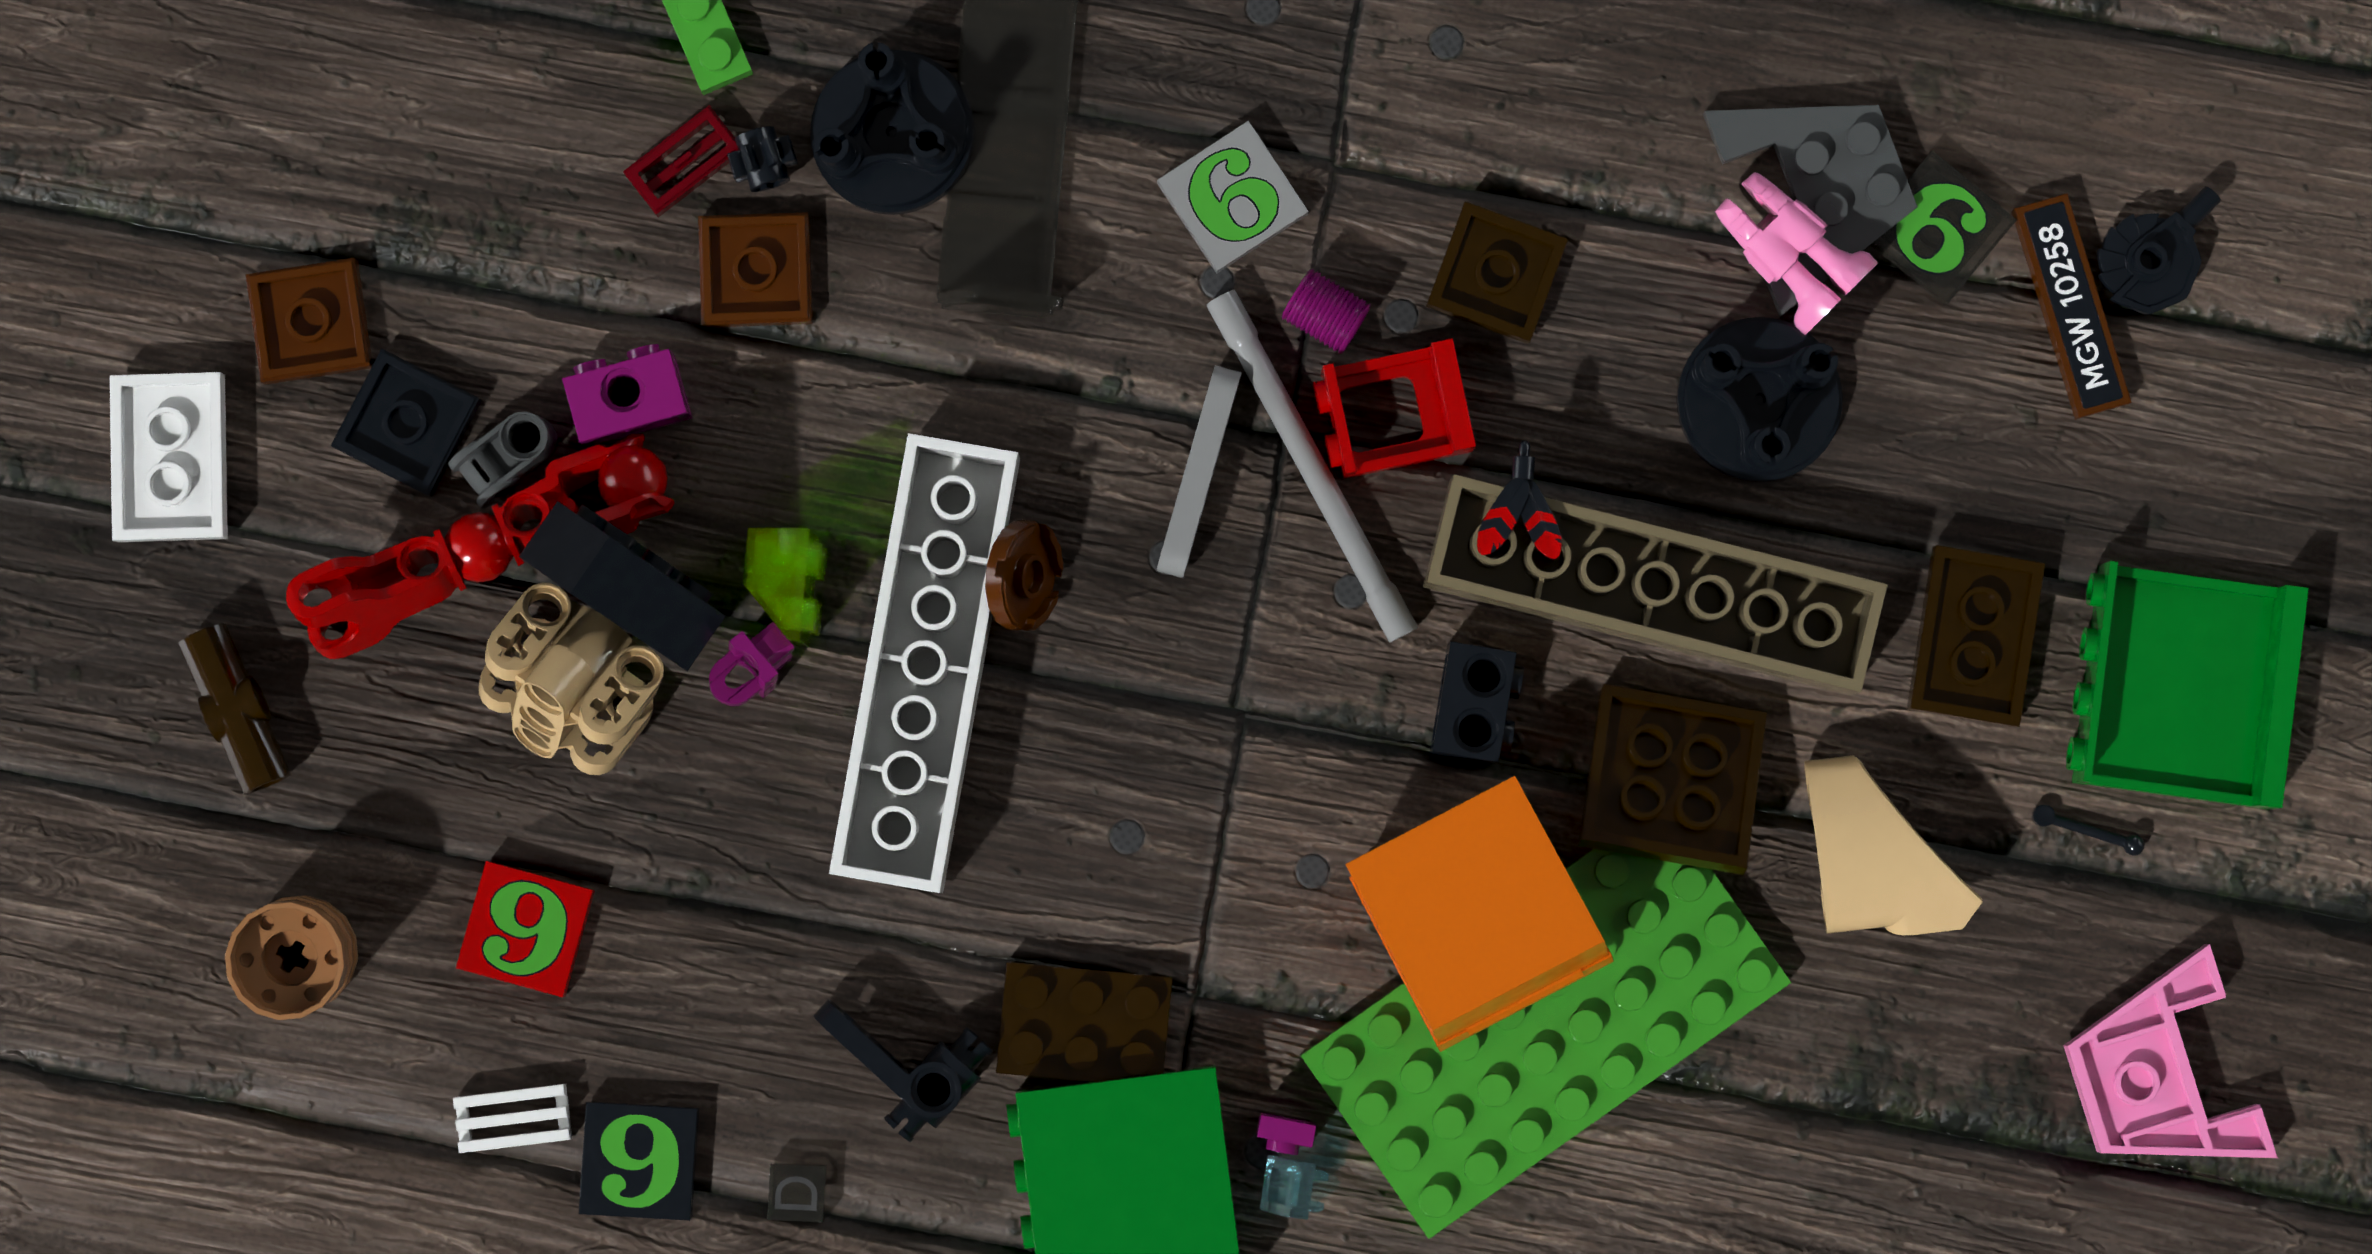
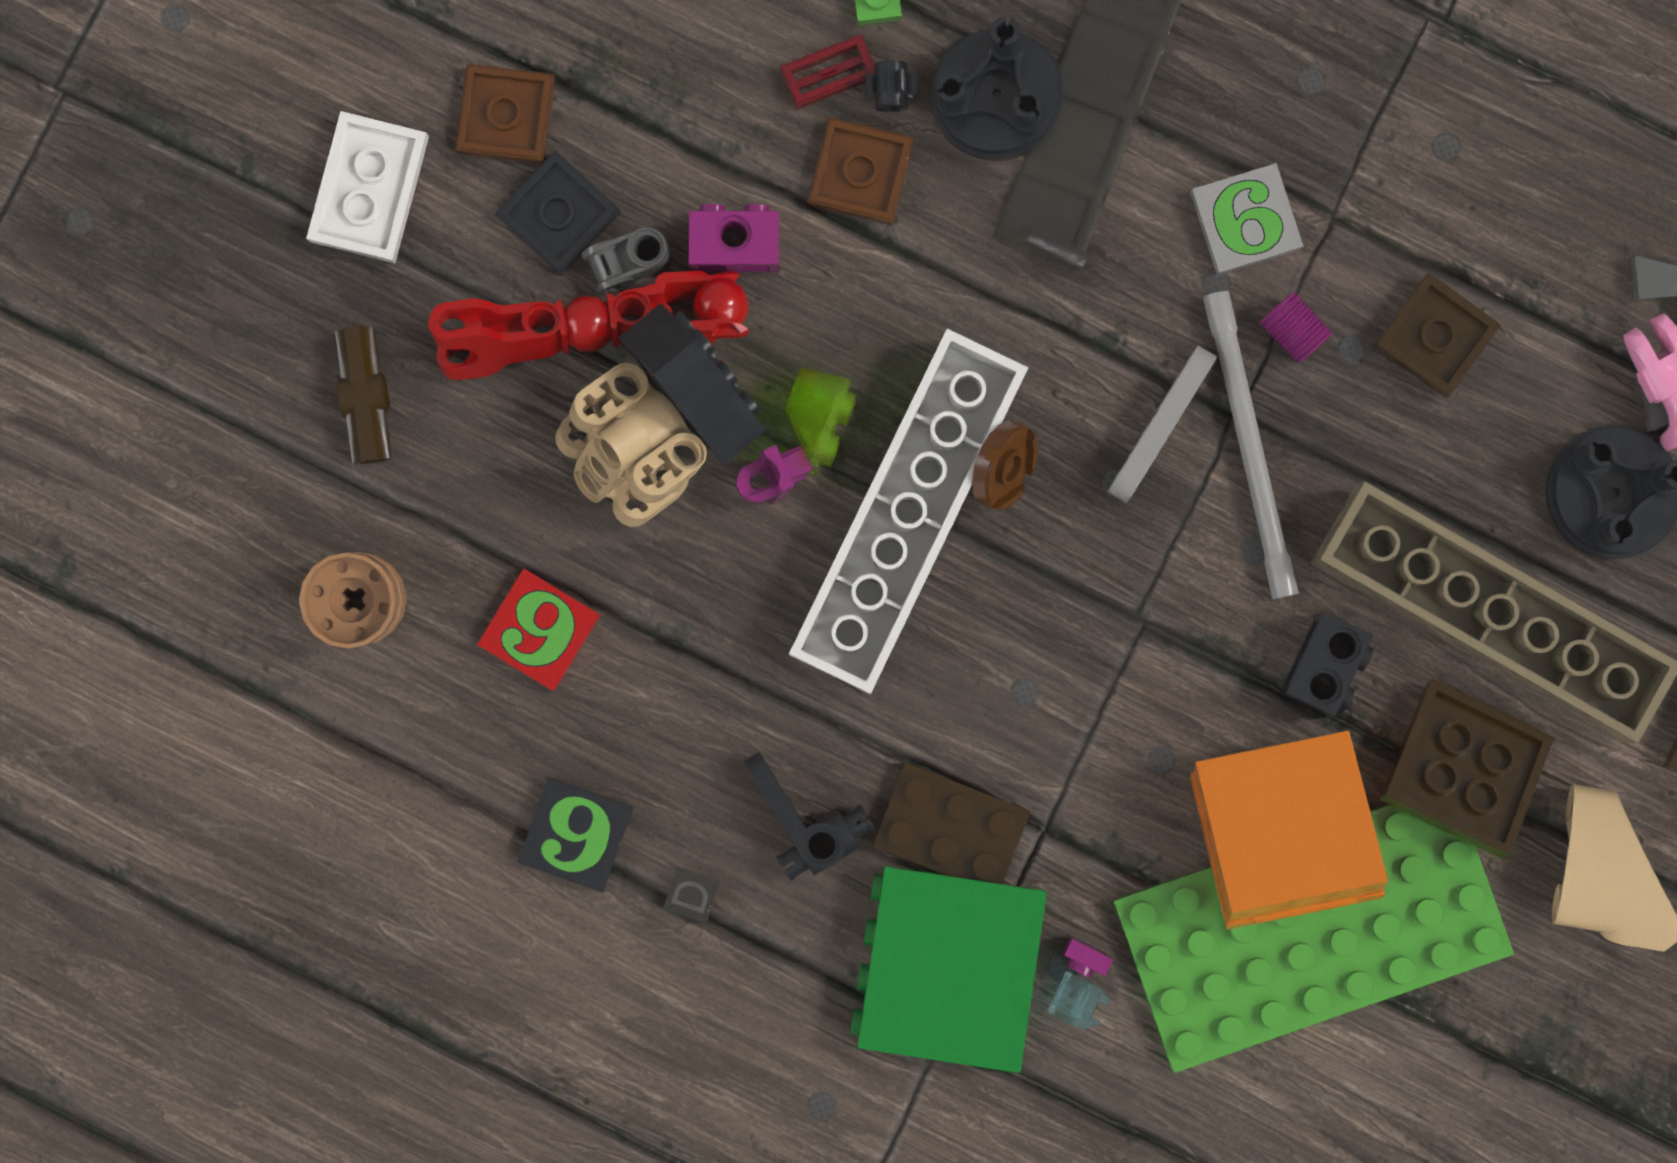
camera: 20 degrees right, 0 degrees up
(465, 1123) = (449, 767): white tile -> none
(1439, 402) = (1364, 424): red window -> none
(1522, 499) = (1410, 515): piece -> none

